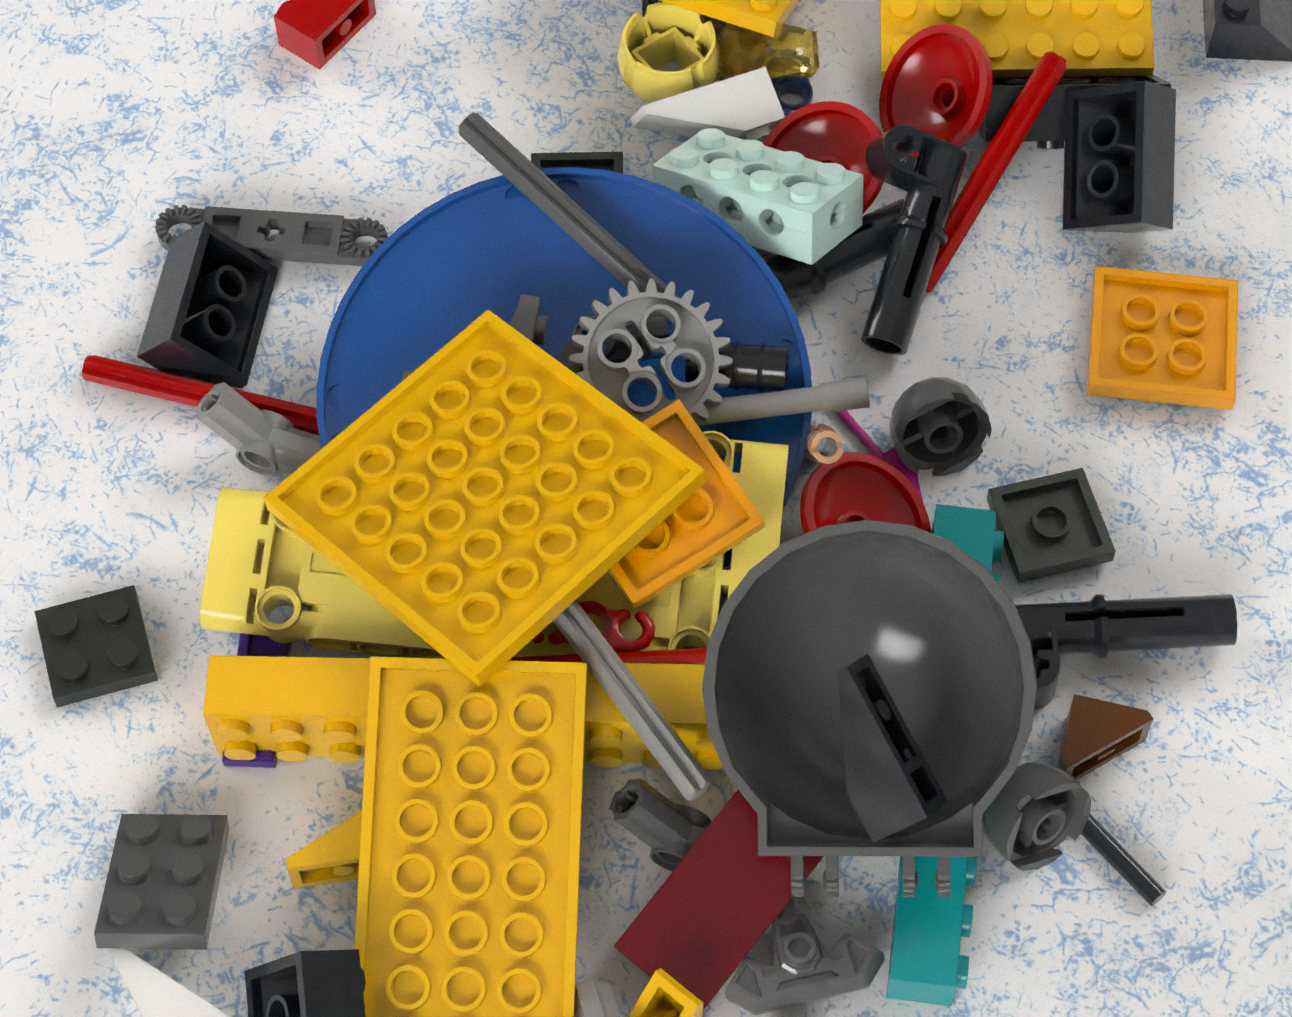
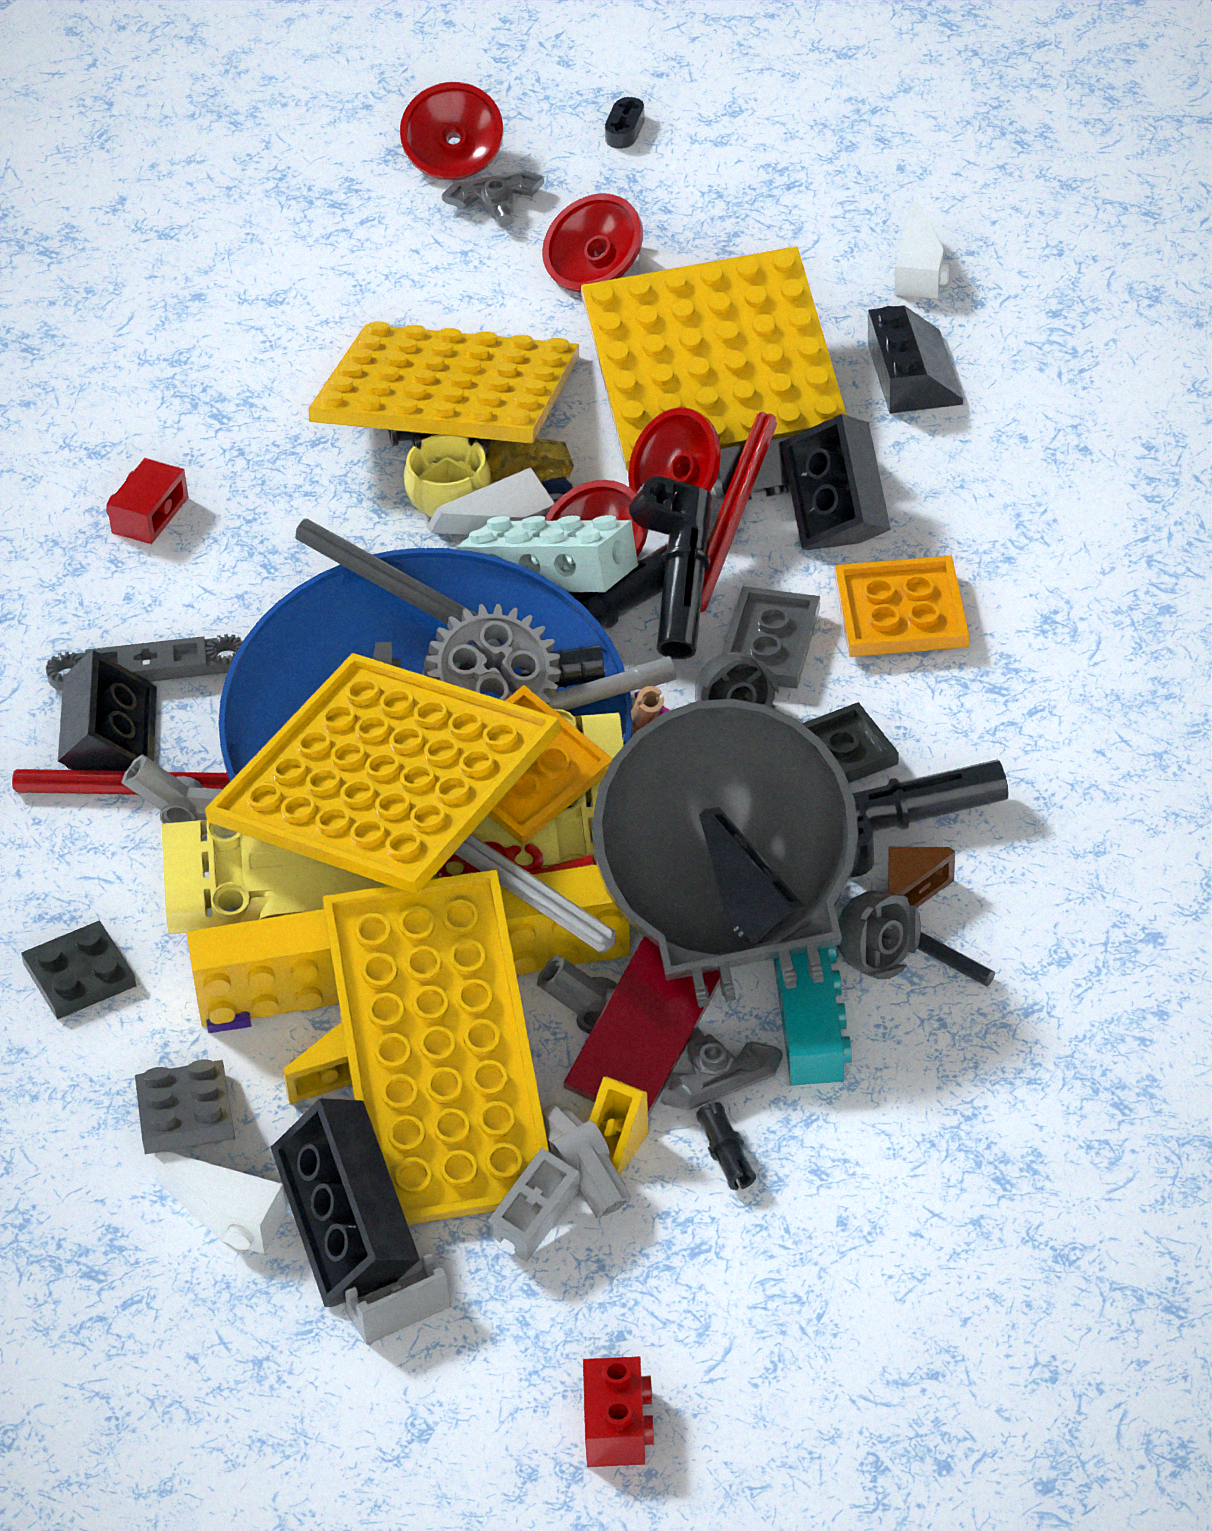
camera: 10 degrees left, 15 degrees down
(1001, 345) = (775, 630): none -> dark grey plate

